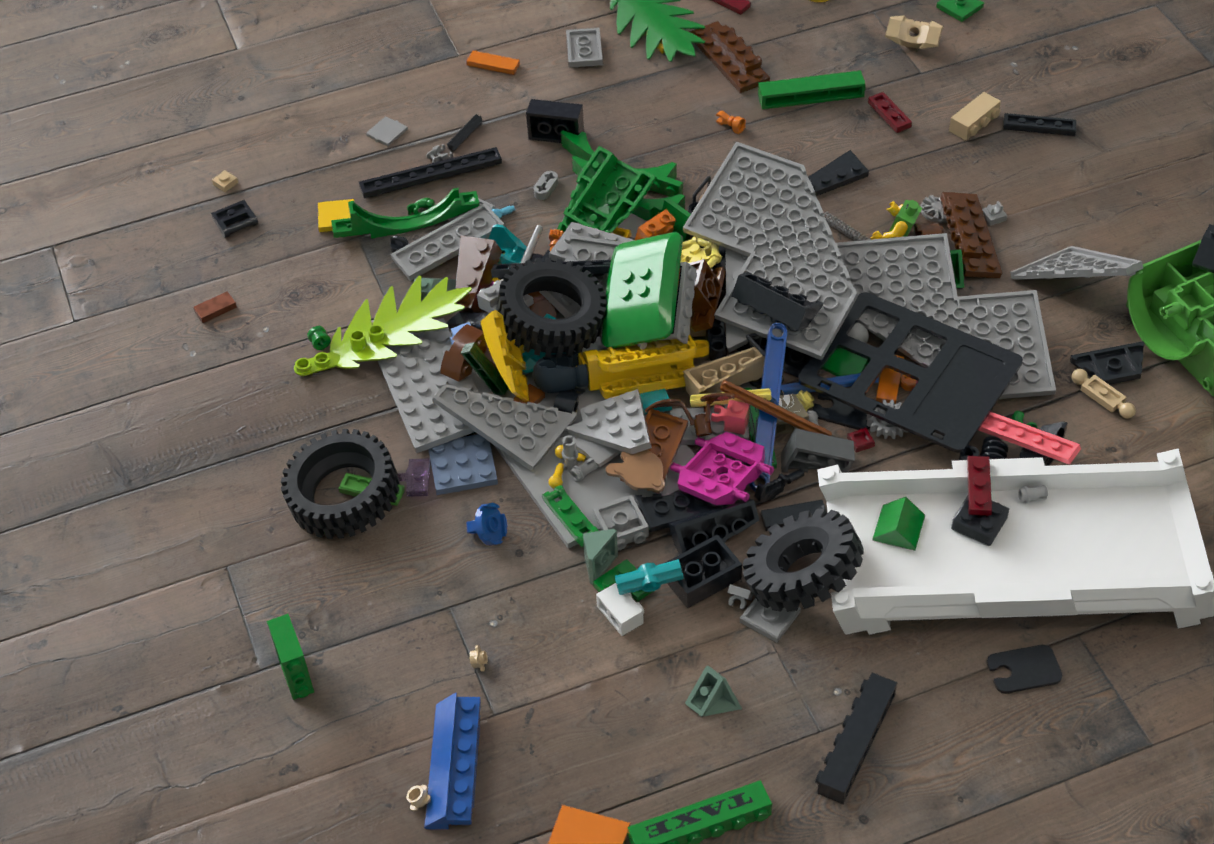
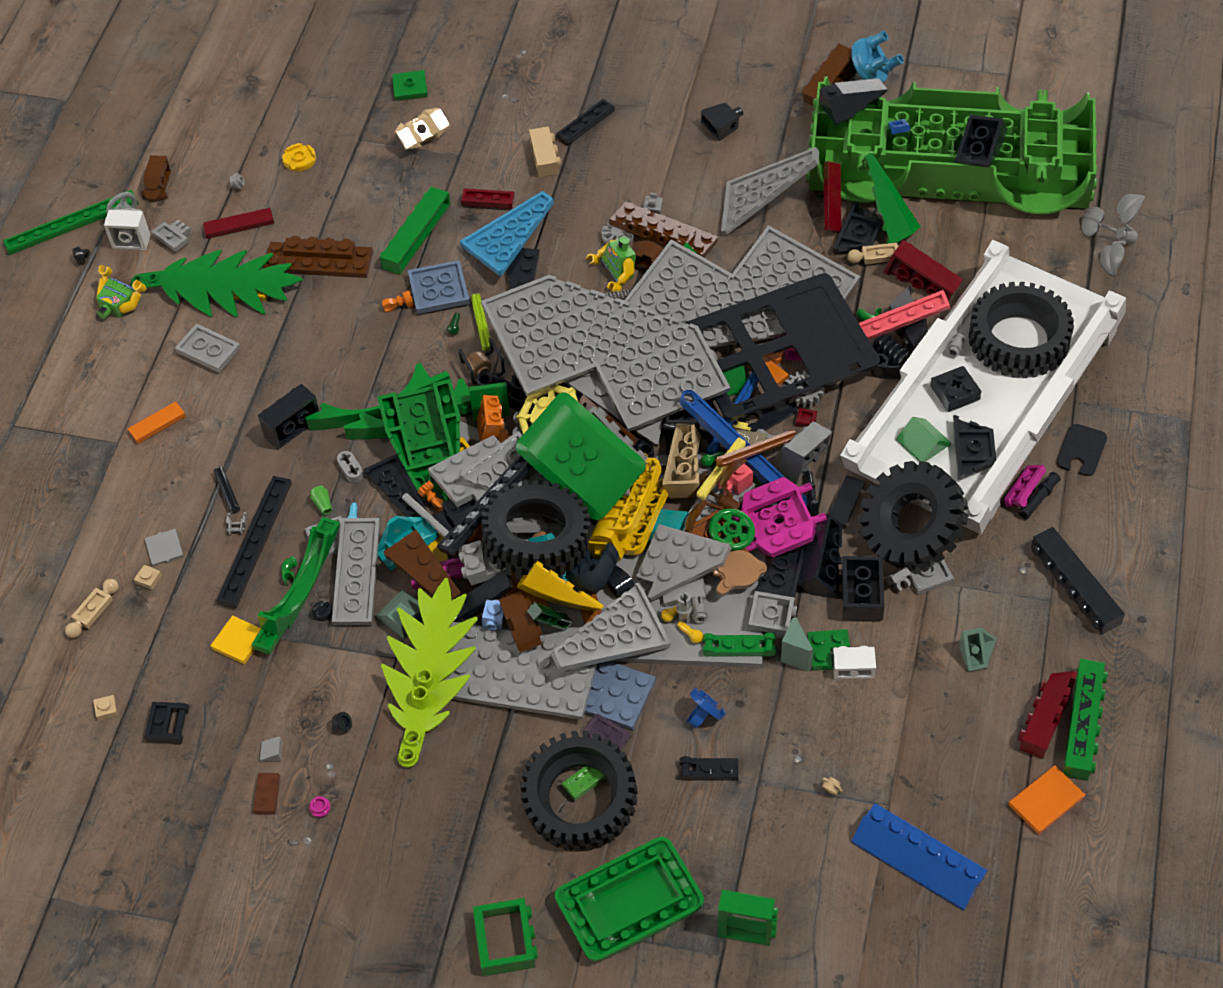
camera: 55 degrees left, 5 degrees up
(170, 501) = (507, 964): none -> green window
(223, 342) = (319, 807): none -> dark pink plate
(254, 289) = (271, 750): none -> light grey slope
(264, 572) = (629, 899): none -> green wedge
(301, 124) = (91, 608): none -> tan plate
(305, 311) = (341, 722): none -> black tile
(319, 337) = (384, 727): green wheel -> none
(352, 137) = (147, 577): none -> tan plate
(418, 797) = (931, 894): tan plate -> none
(435, 565) = (709, 769): none -> black plate
(499, 186) = (321, 499): none -> bright green cone
(549, 218) = (394, 482): none -> black wing
(649, 577) = (854, 622): teal piece -> none
(676, 457) = (745, 521): none -> green plate
(678, 787) = (1047, 713): none -> dark red wedge
(769, 133) = (438, 287): none -> sand blue plate
(775, 301) = (662, 380): black wedge -> none
(855, 141) = (504, 237): none -> dark azure wing
(924, 565) = (973, 447): none -> black wing
(931, 639) = (1024, 486): none -> dark pink plate
(933, 658) = (1044, 489): none -> black pin
(979, 485) = (936, 368): dark red plate -> none
(1102, 498) = (1021, 302): none -> black tyre
(1109, 427) = (922, 271): none -> dark red wedge
(1123, 318) = (832, 197): none -> dark red tile
(1138, 204) = (721, 120): none -> black torso
(1153, 372) = (897, 217): none -> green wedge

